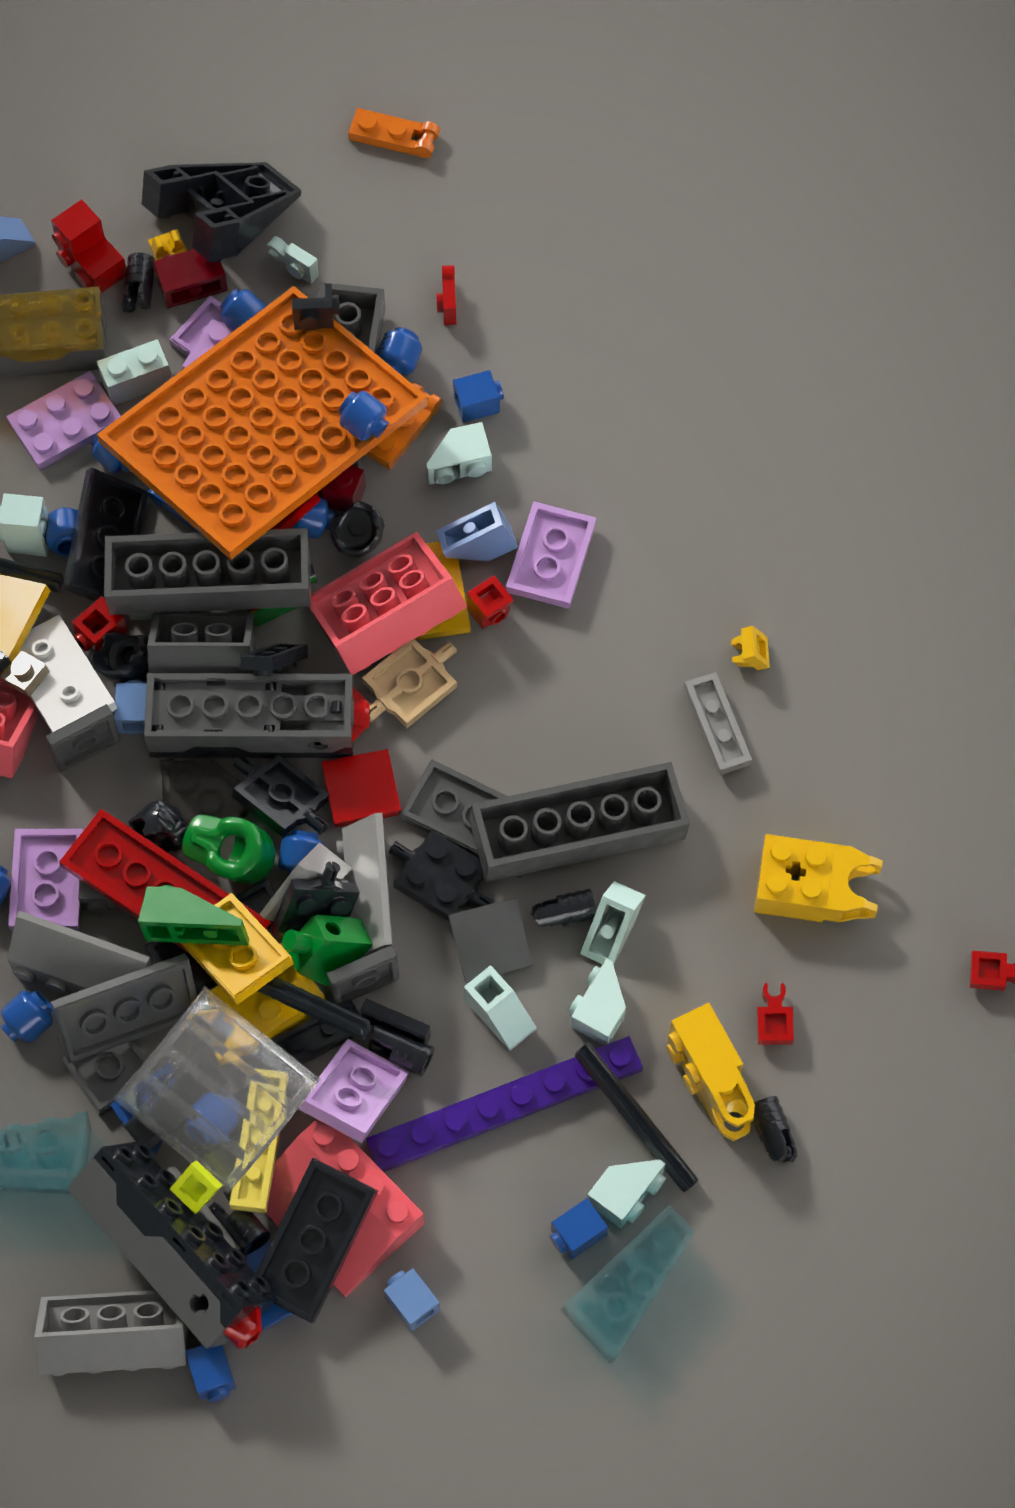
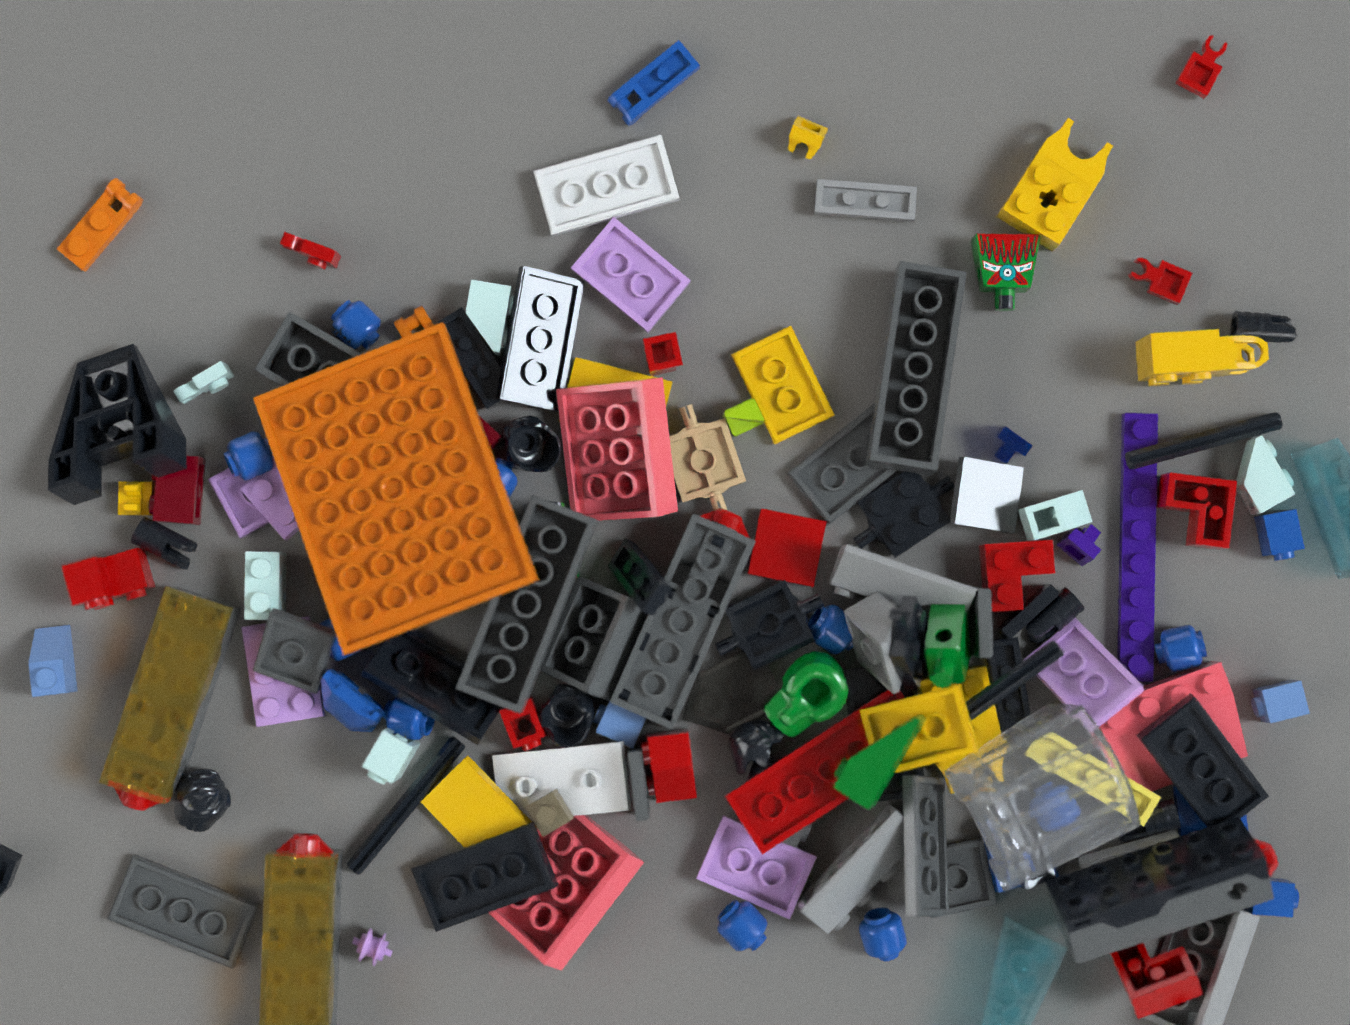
camera: 70 degrees left, 20 degrees up
(59, 469) = (346, 704): none -> blue slope
(82, 1273) = (1155, 981): none -> red brick
(84, 409) = (294, 650): none -> dark grey tile
(114, 764) = (671, 766): none -> red brick
(196, 1187) = (1126, 851): neon yellow plate -> none
(316, 312) = (303, 391): black bracket -> none
(363, 415) = (445, 393): blue head -> none
(410, 462) = (474, 356): none -> black plate
(423, 1181) = (1181, 648): none -> blue head
(428, 983) = (1005, 564): none -> red brick
(446, 496) = (539, 338): none -> plate
(466, 699) = (743, 417): none -> lime slope
(477, 396) = (434, 270): blue brick -> none
(478, 535) = (587, 335): medium blue slope -> none
(483, 1046) = (1080, 544): none -> dark purple tile
(511, 724) = (782, 385): none -> yellow tile
(548, 942) = (1011, 444): none -> clear blue tile
(565, 909) = (984, 417): black hinge -> none
(574, 1144) = (1208, 503): none -> red brick
(601, 1008) = (1090, 425): light aqua slope -> none
(612, 923) = (1017, 380): light aqua slope -> none
(623, 503) = (606, 185): none -> white plate
(717, 868) = (1005, 265): none -> torso
(735, 505) = (654, 82): none -> blue plate

